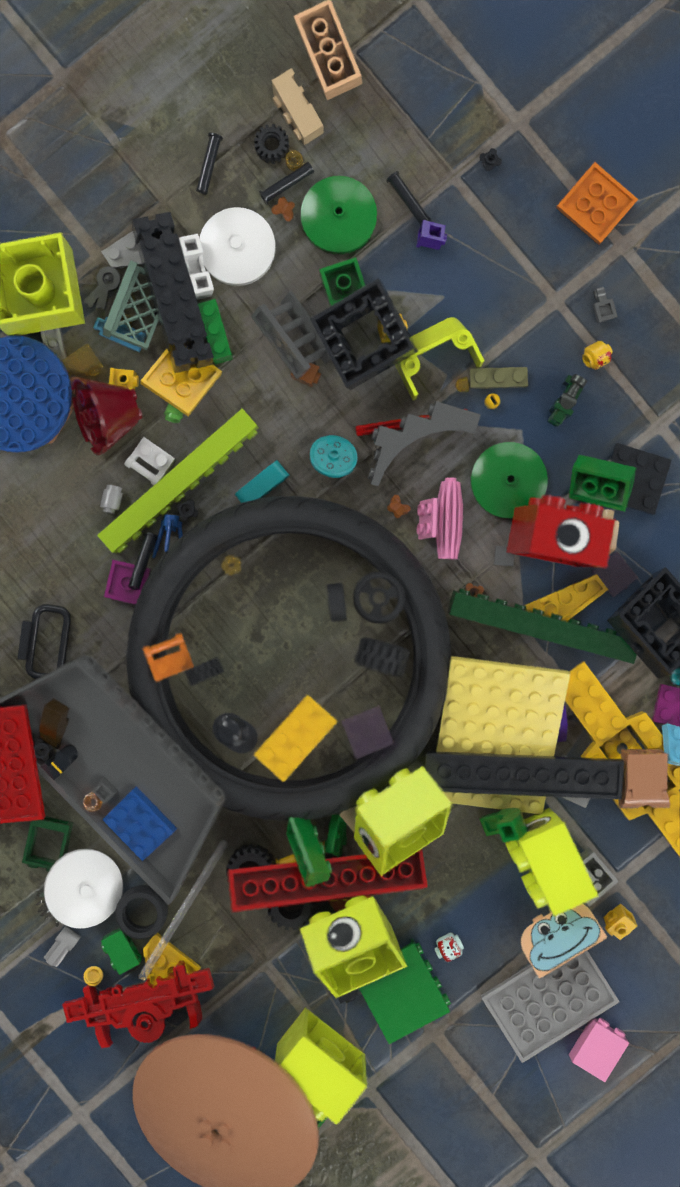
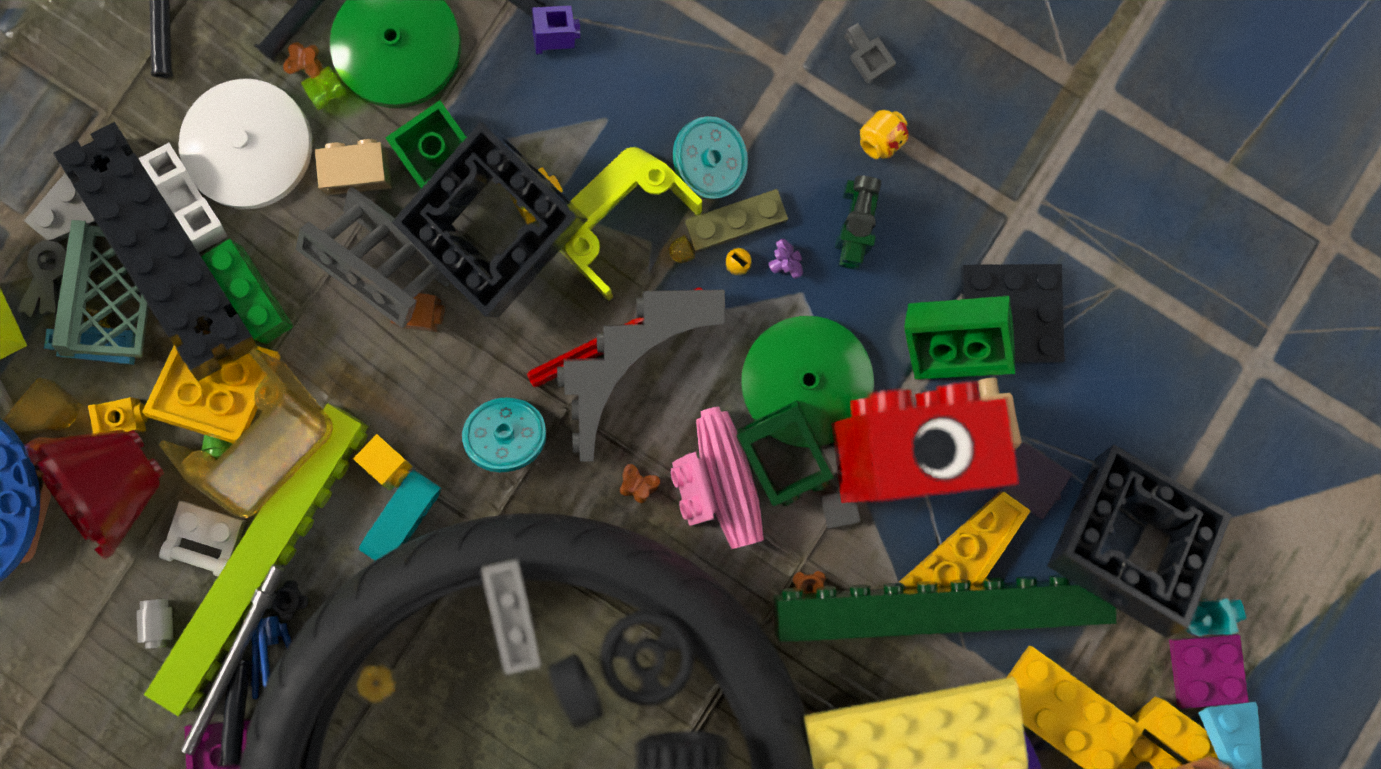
camera: 15 degrees left, 5 degrees down
(175, 505) = (261, 599): none -> flat silver bar
(201, 425) = (267, 452): none -> clear yellow windscreen
(262, 451) = (383, 463): none -> yellow brick
(291, 228) = (323, 88): none -> clear neon green wheel
(295, 279) = (355, 166): none -> tan brick
(314, 552) = (511, 616): none -> light grey plate
(479, 497) = (771, 423): none -> dark green window
(496, 337) = (710, 157): none -> teal shield
(519, 408) = (786, 259): none -> medium lavender plant

